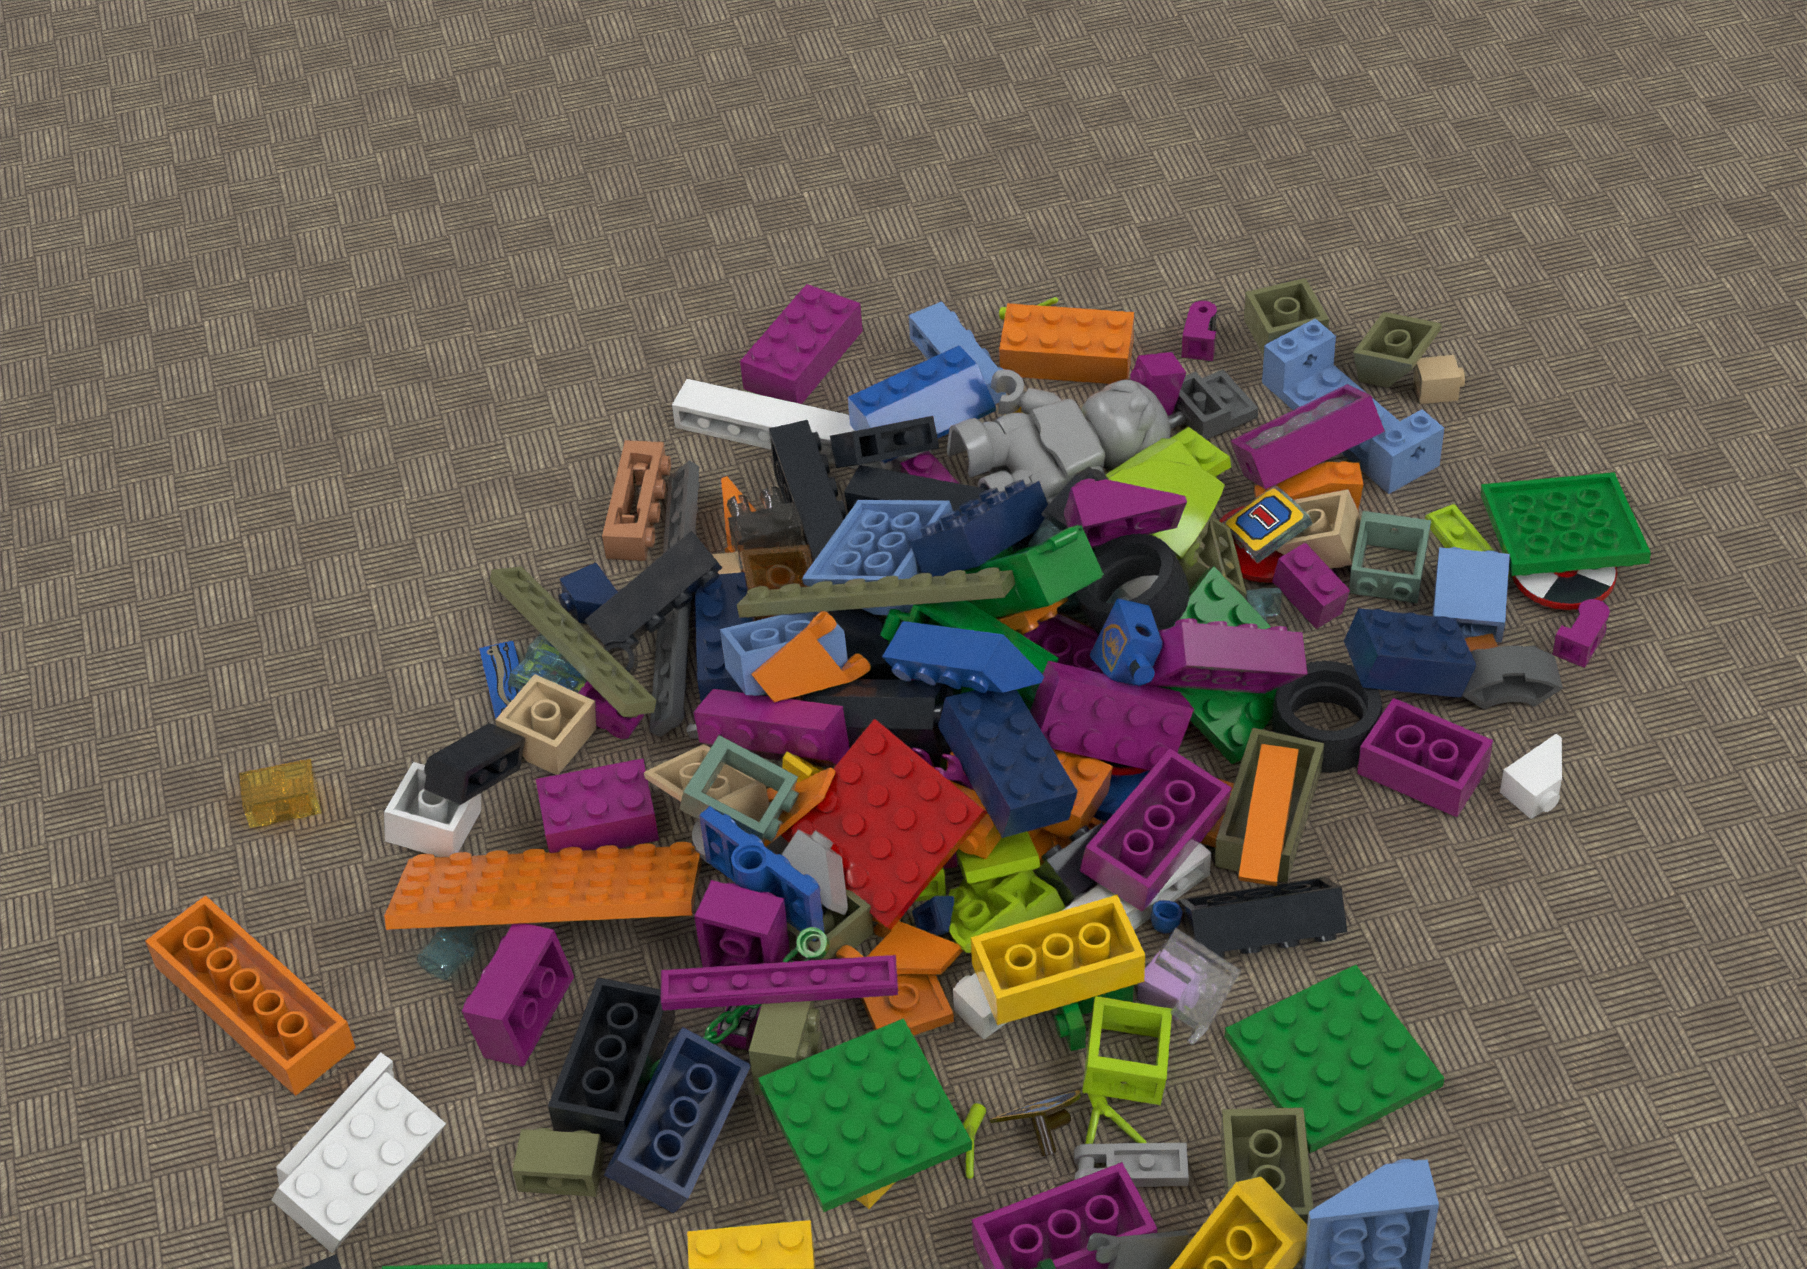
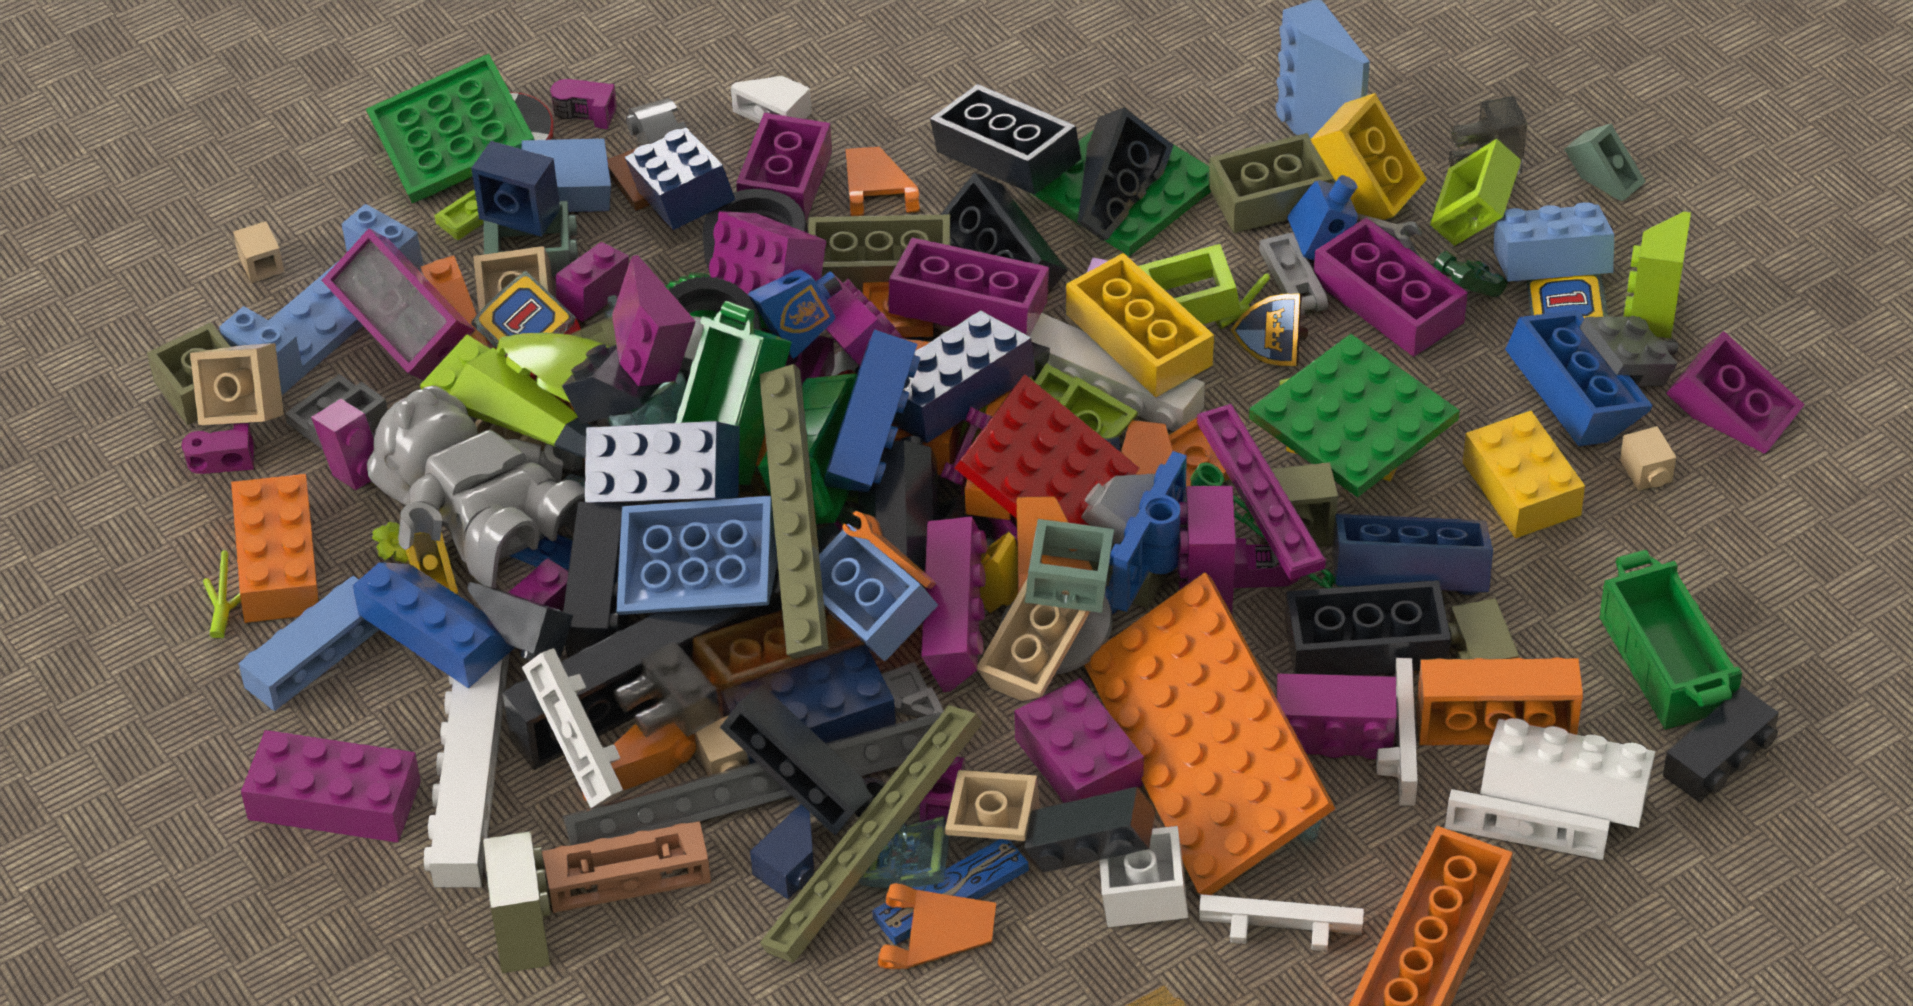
camera: 110 degrees left, 0 degrees up
(347, 905) = (1279, 914): none -> white hinge
(465, 1054) = (1402, 760): none -> white hinge
(467, 1134) = (1467, 697): none -> orange brick
(474, 677) = (939, 926): none -> orange flag
(632, 417) = (517, 900): none -> olive wedge
(767, 438) = (572, 727): none -> white hinge
(1179, 1196) = (1323, 214): none -> blue torso
(1206, 976) = (1100, 246): clear panel -> none
(1243, 328) = (237, 384): none -> tan slope
(1268, 815) = (920, 218): orange slope -> none
(1326, 1032) = (1119, 168): none -> black wedge
(1393, 348) = (235, 272): olive slope -> none
(1399, 939) = (1006, 139): none -> black brick
(1404, 844) = (875, 173): none -> orange flag
(1417, 520) = (516, 188): none -> dark blue brick

